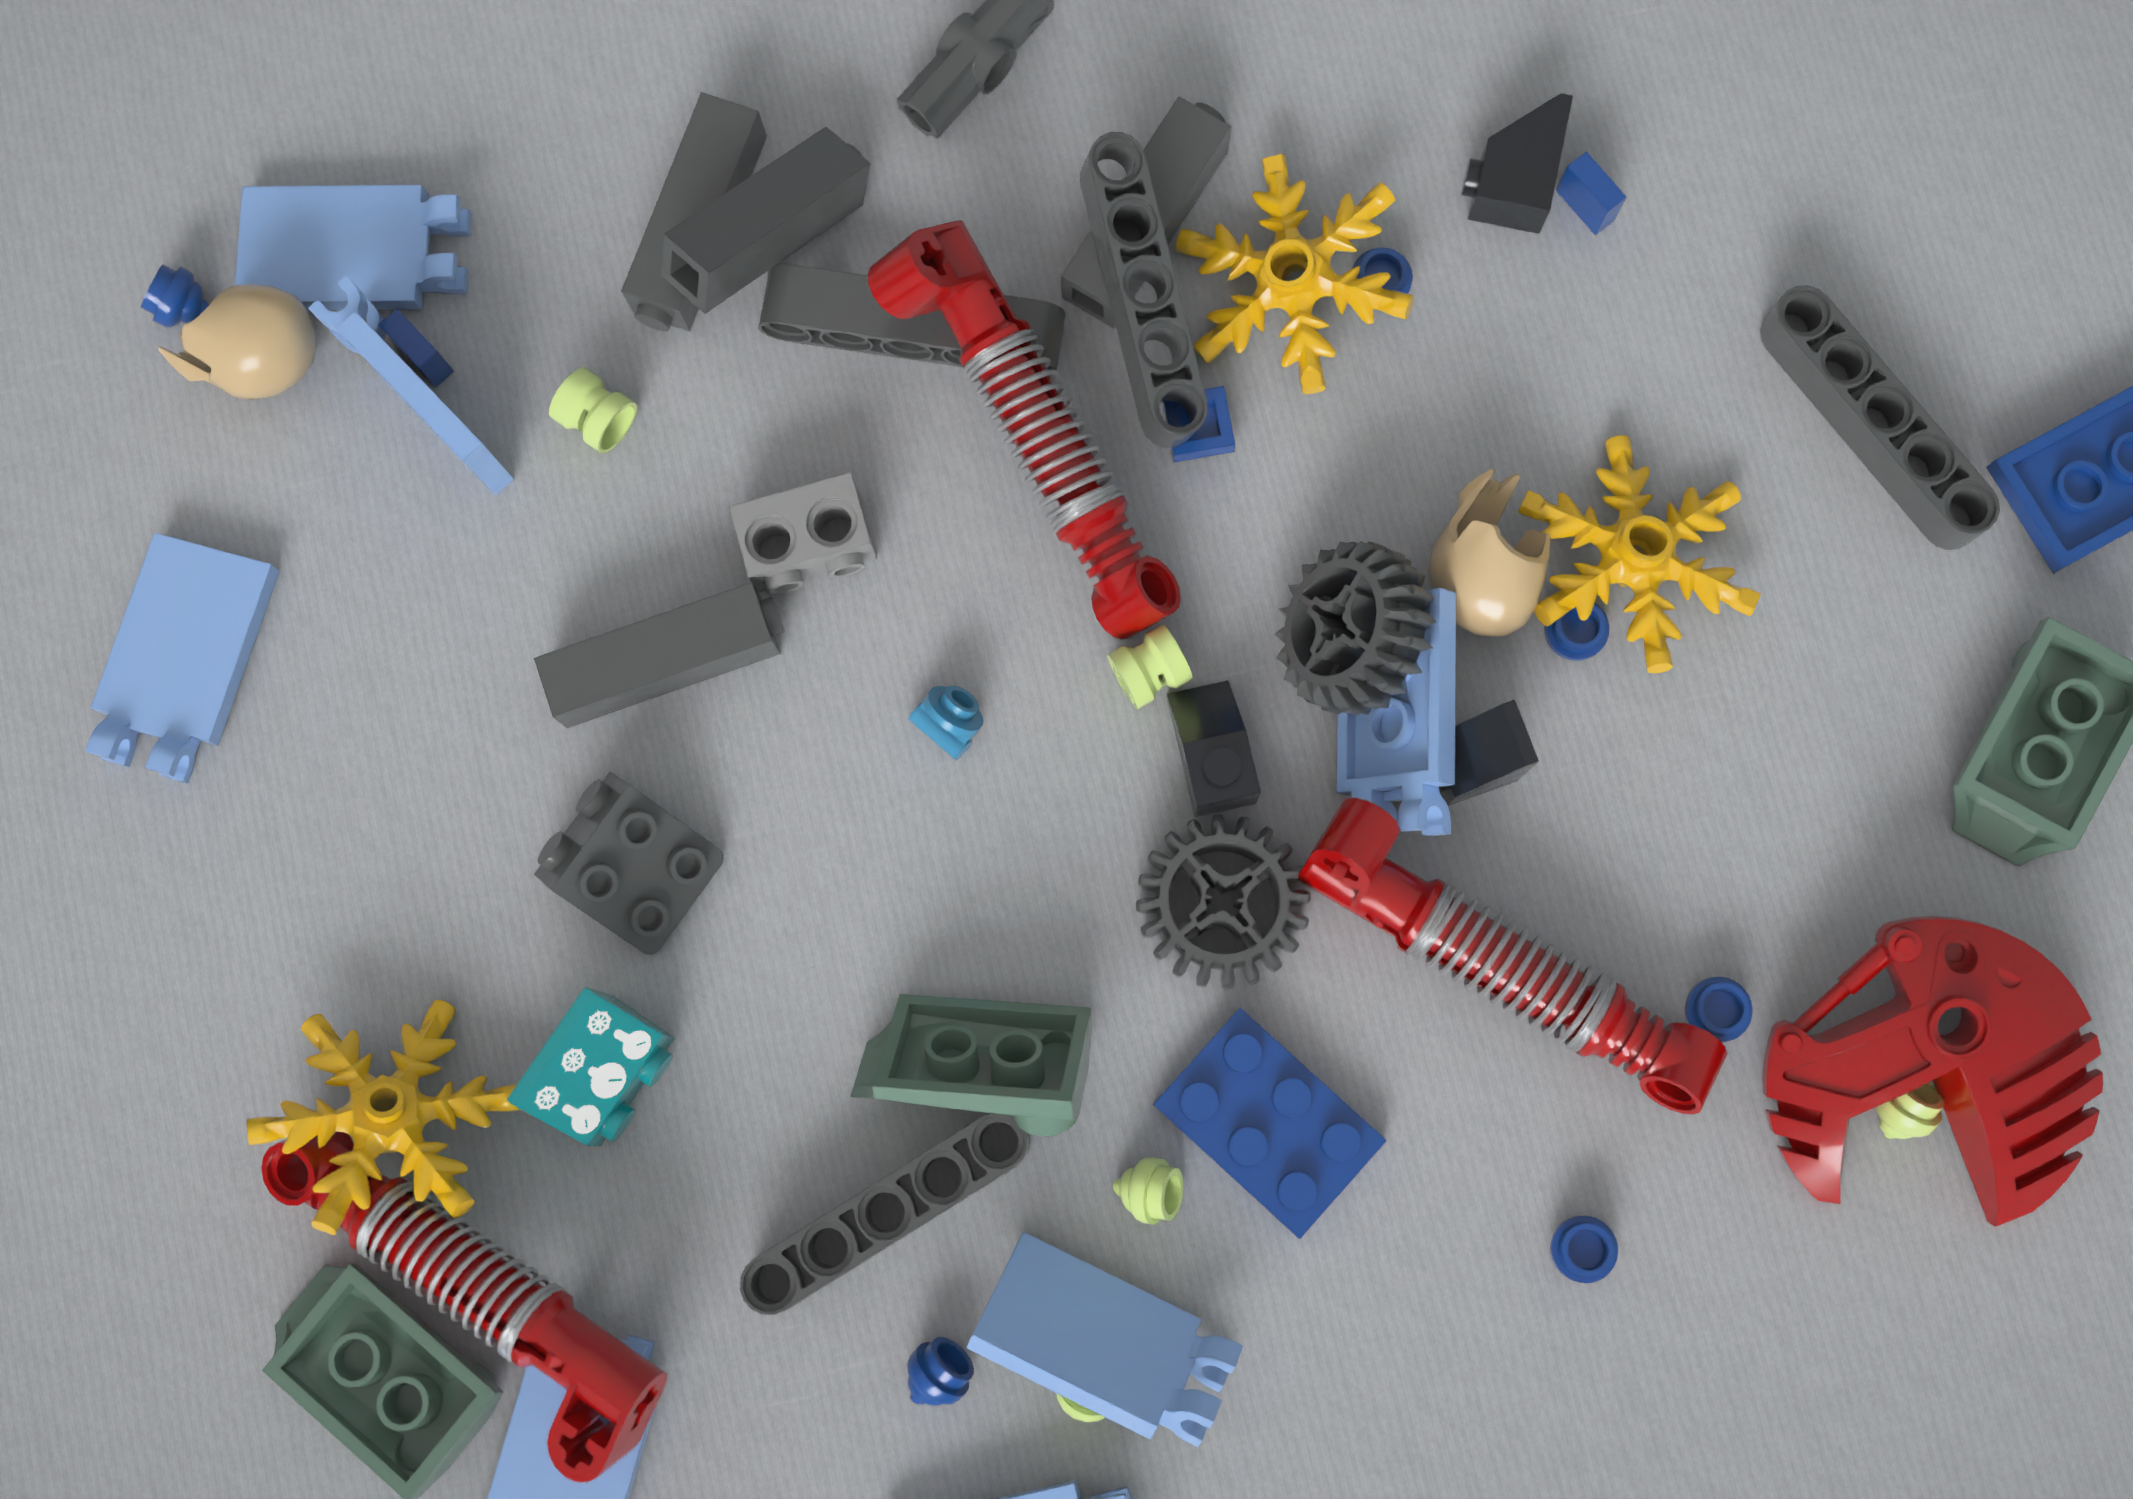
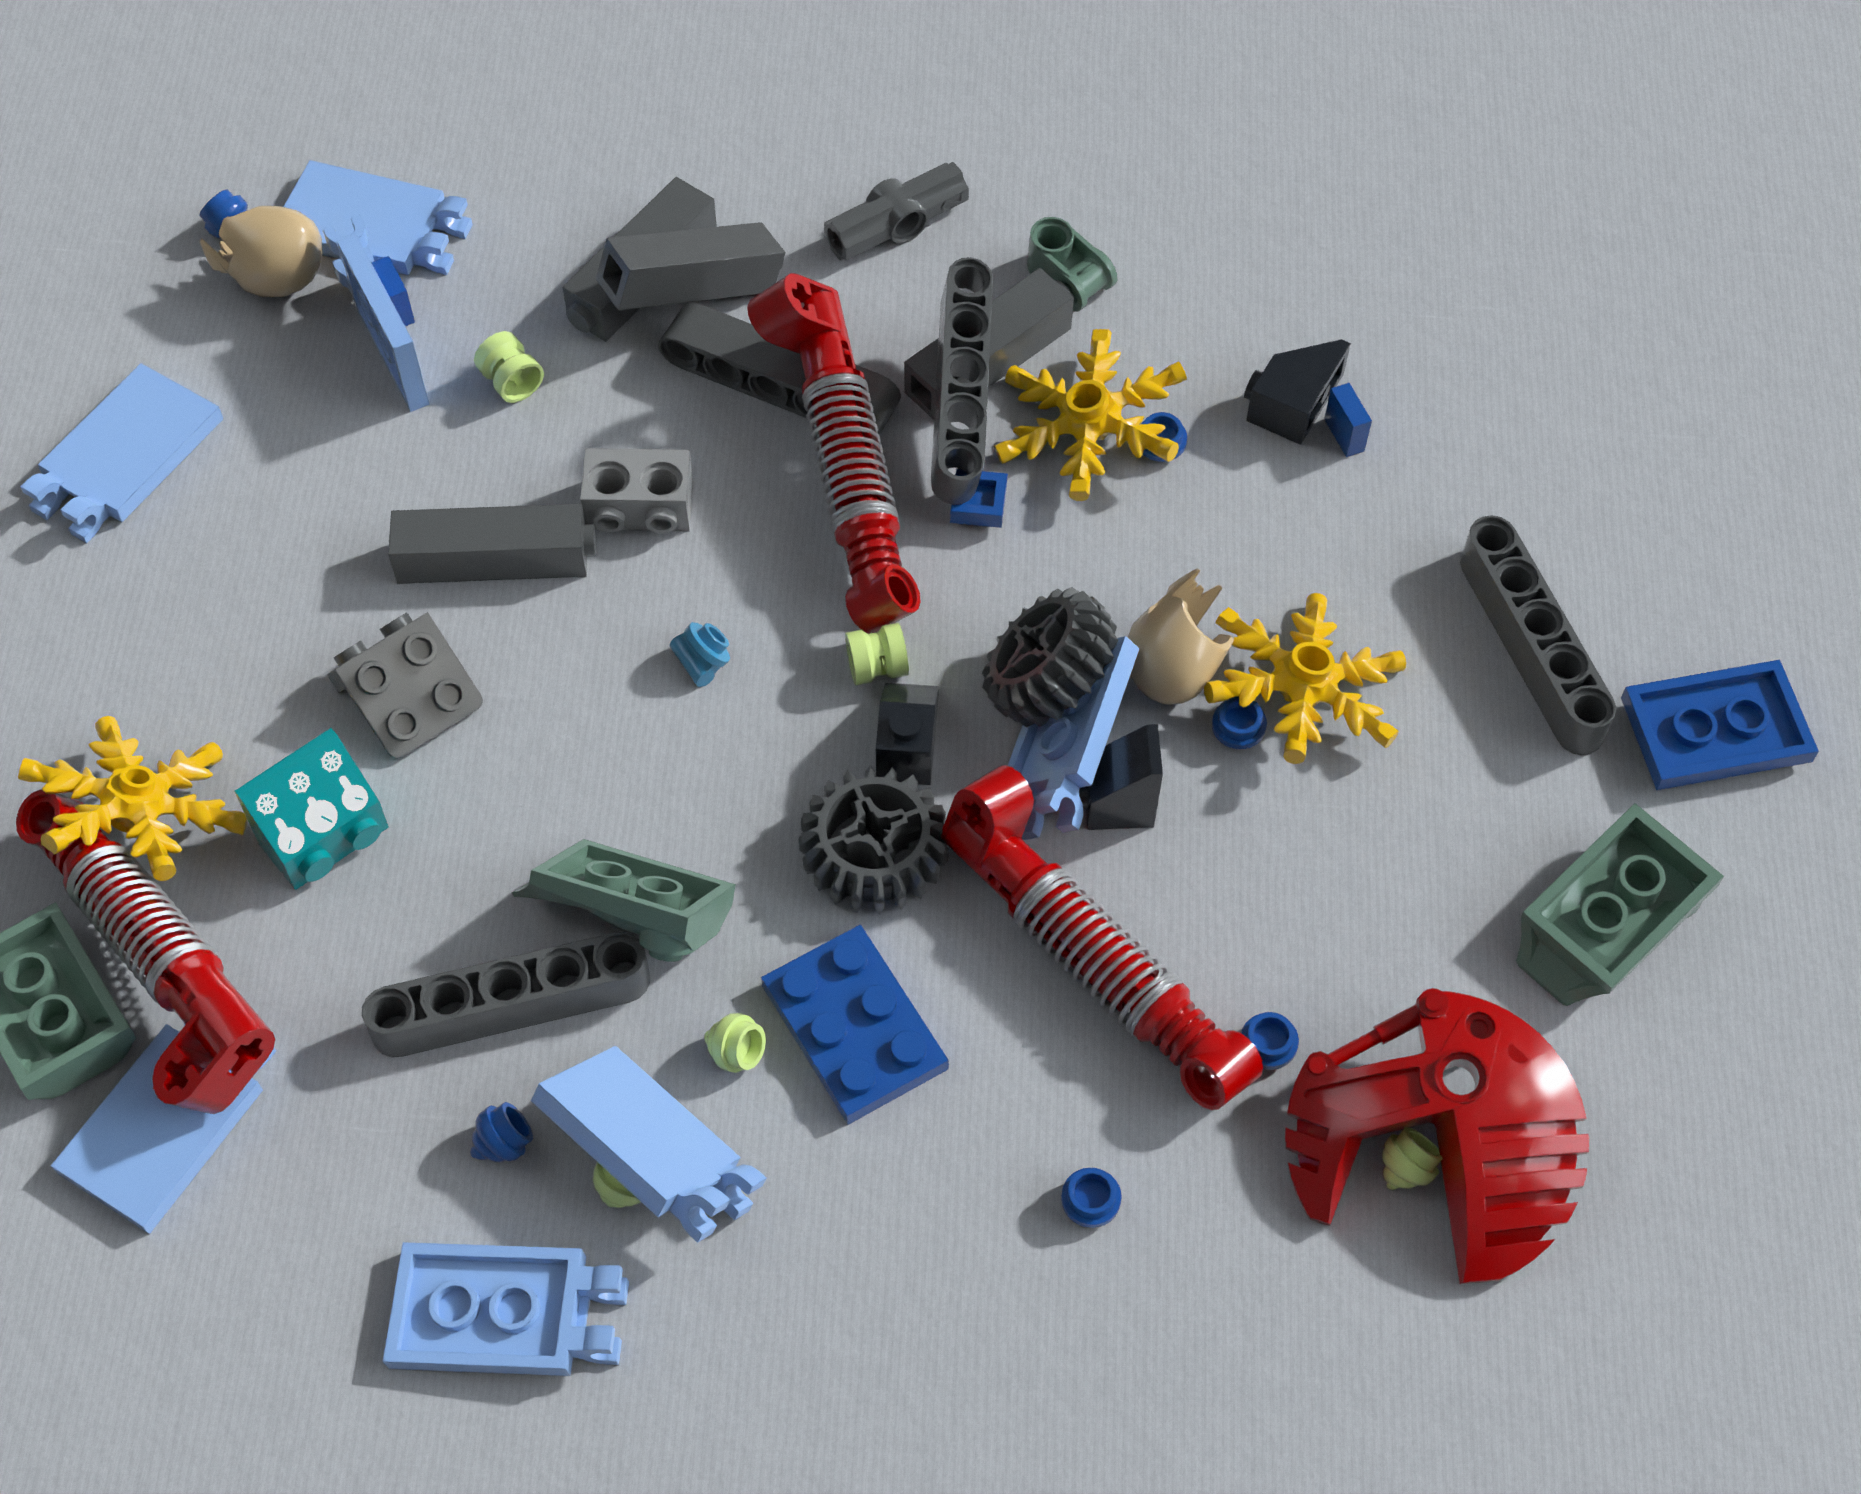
camera: 10 degrees right, 20 degrees down
(1208, 73) = (1069, 259): none -> sand green piece

